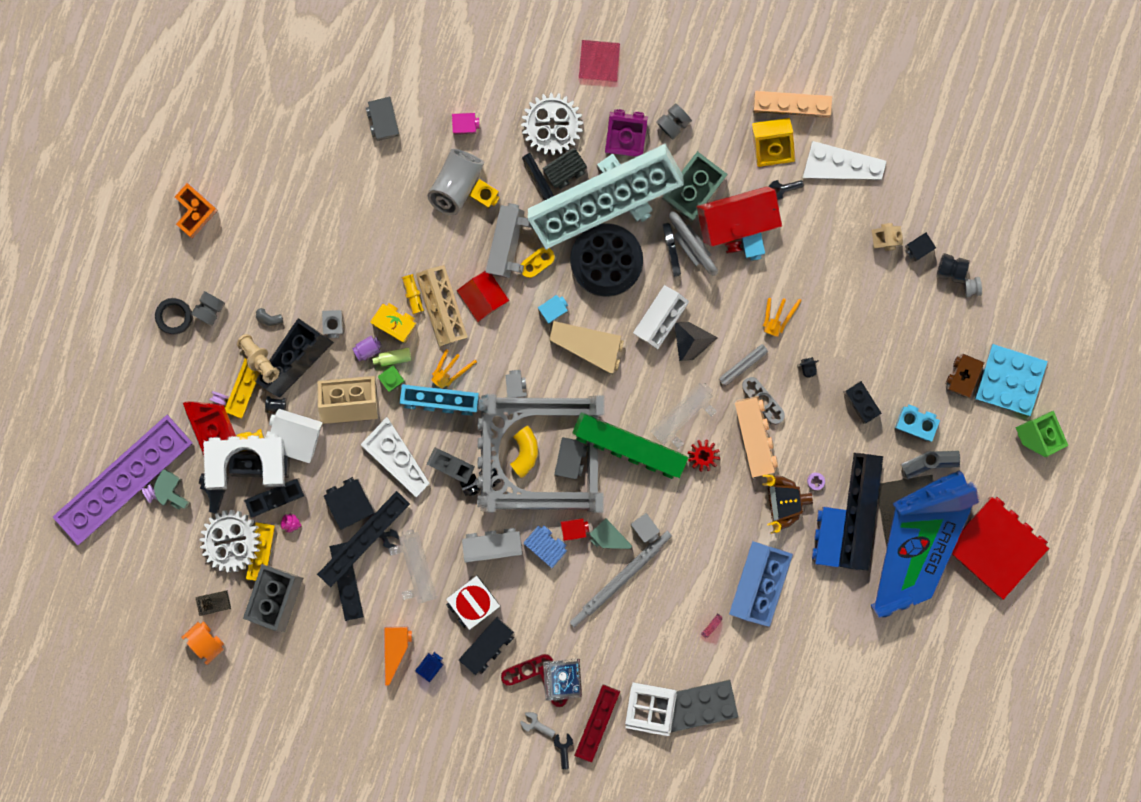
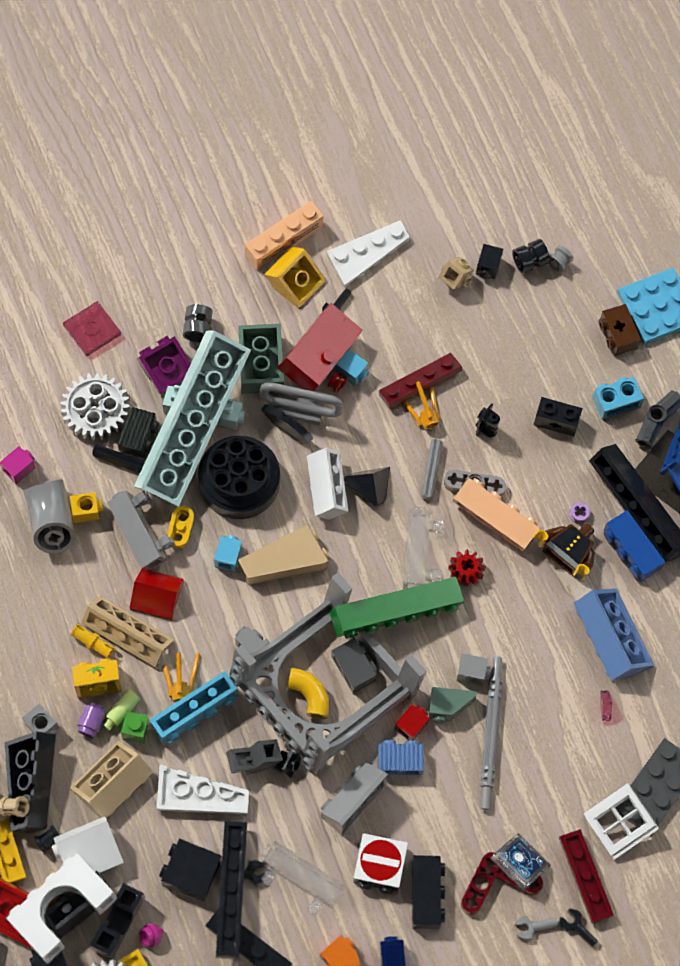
camera: 45 degrees left, 20 degrees down
(793, 293) = (427, 376): none -> dark red plate

